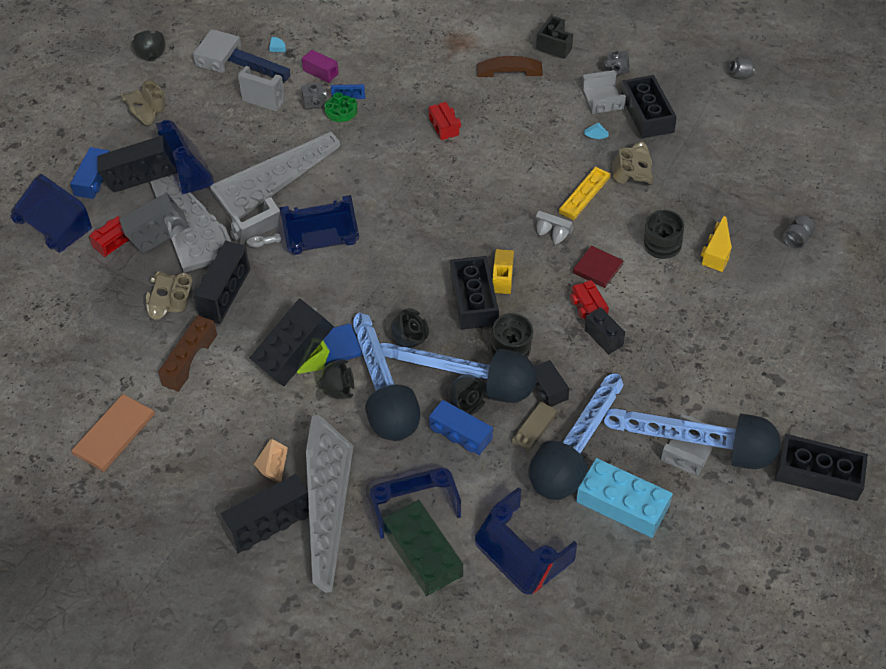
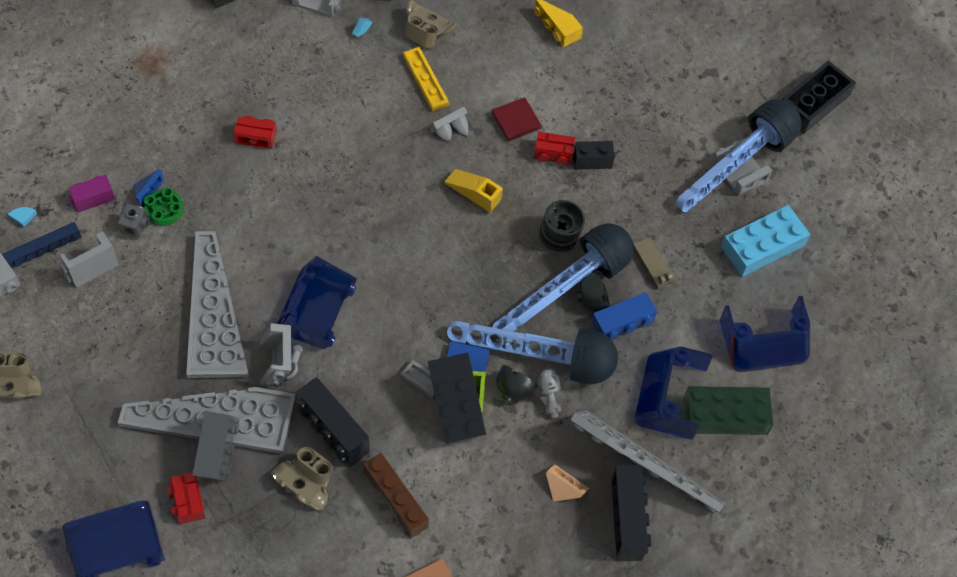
camera: 65 degrees left, 10 degrees up
(87, 179) = (79, 476): blue brick -> none
(137, 164) = (119, 423): black brick -> none
(189, 163) = (113, 375): clear blue windscreen -> none
(349, 404) = (549, 384): none -> light grey piece
(409, 328) = (496, 298): pearl dark grey cylinder -> none
(474, 292) = (486, 225): black brick -> none
(509, 64) = (221, 42): reddish brown slope -> none
(550, 385) = (628, 221): black brick -> none
(557, 466) = (720, 267): black piece -> none
(663, 234) = (525, 51): pearl dark grey wheel -> none

